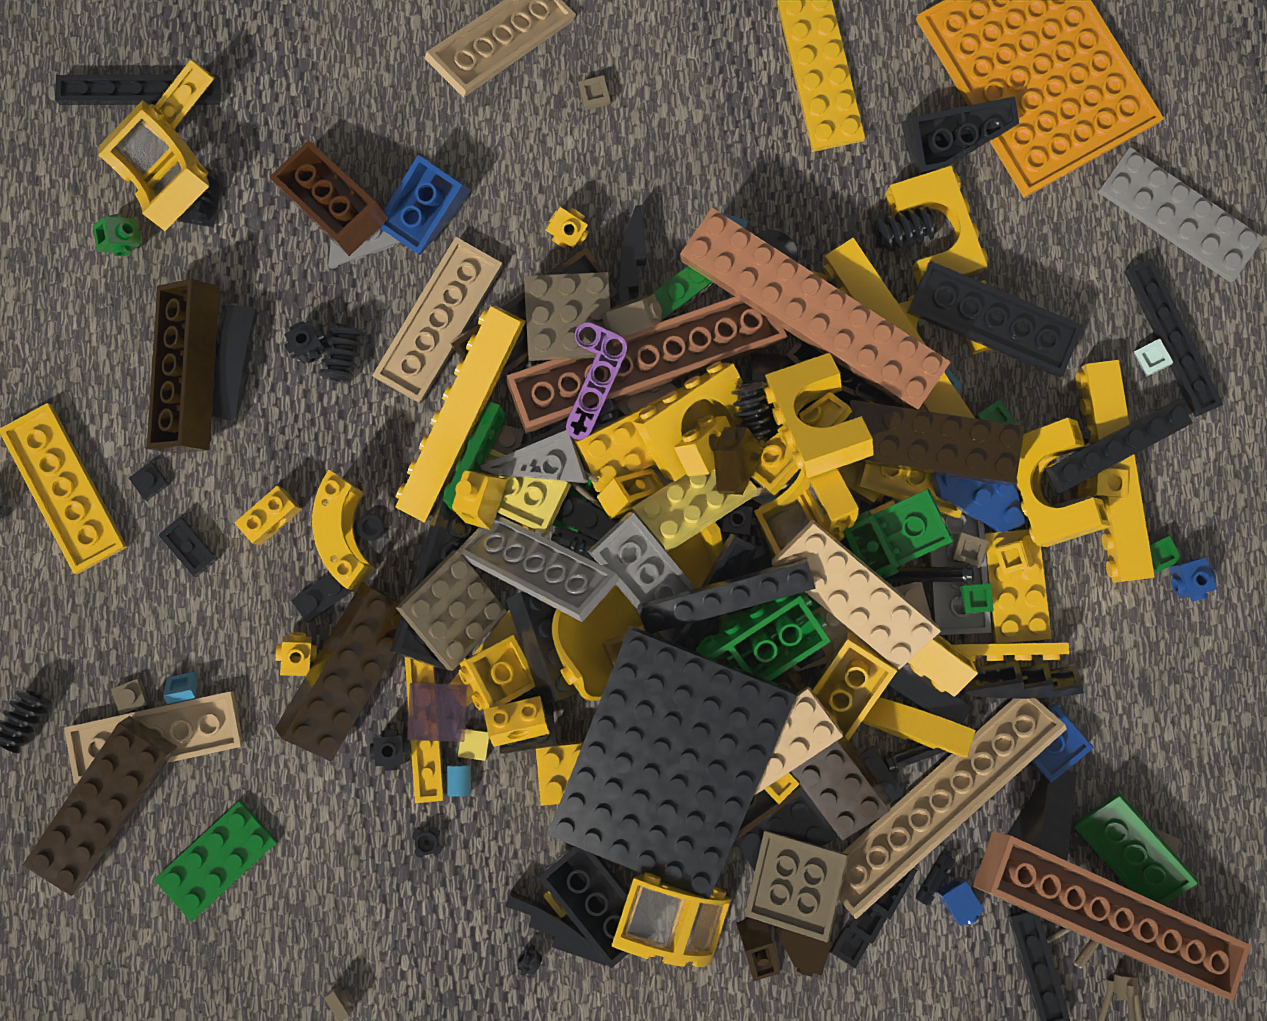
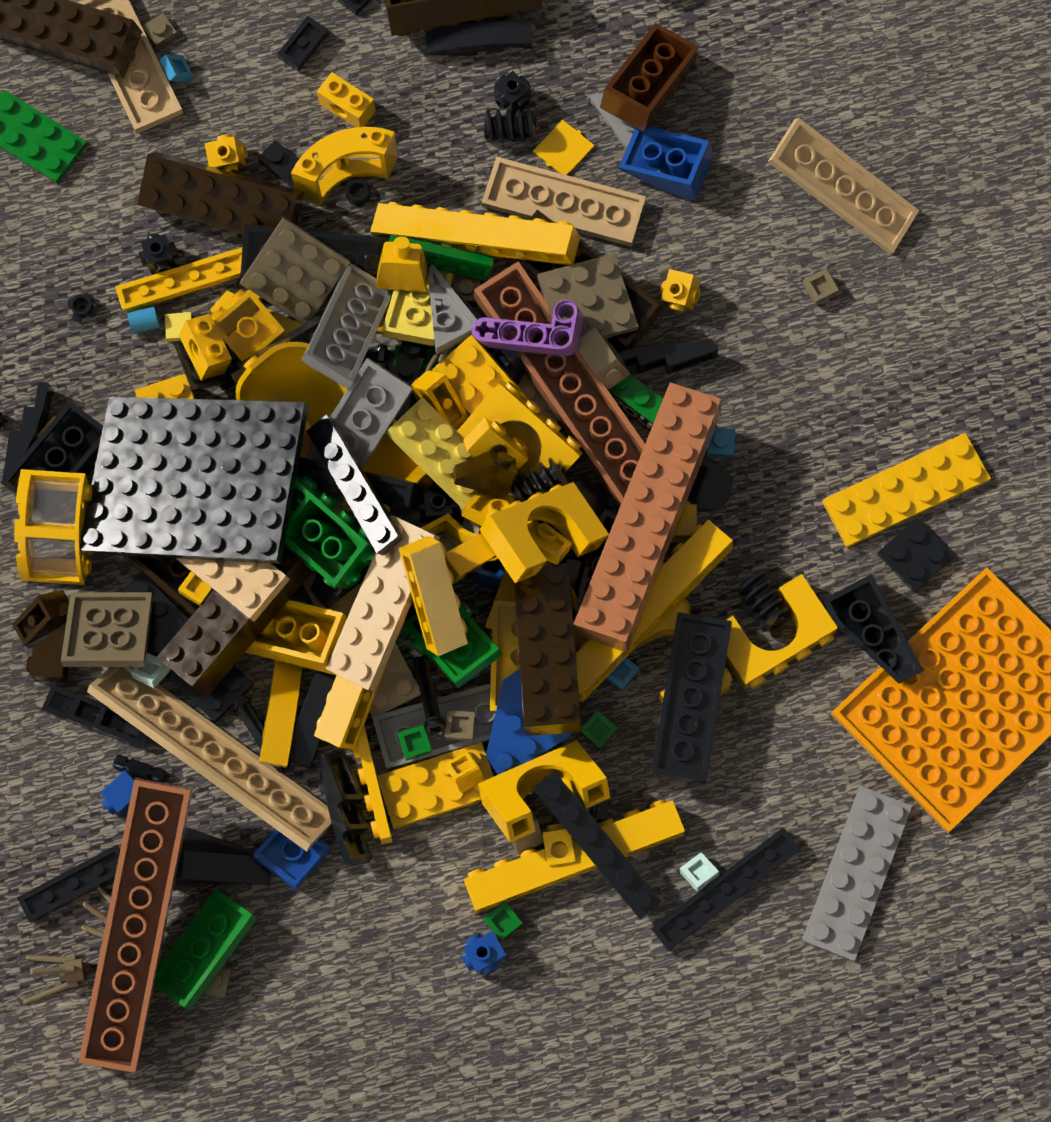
camera: 85 degrees right, 10 degrees down
(378, 307) = (563, 148): none -> yellow piece
(437, 712) = (200, 284): plate -> none
(847, 846) = (152, 673): none -> light aqua plate
(870, 540) = (434, 595): none -> yellow brick
(886, 78) = (915, 555): none -> black plate

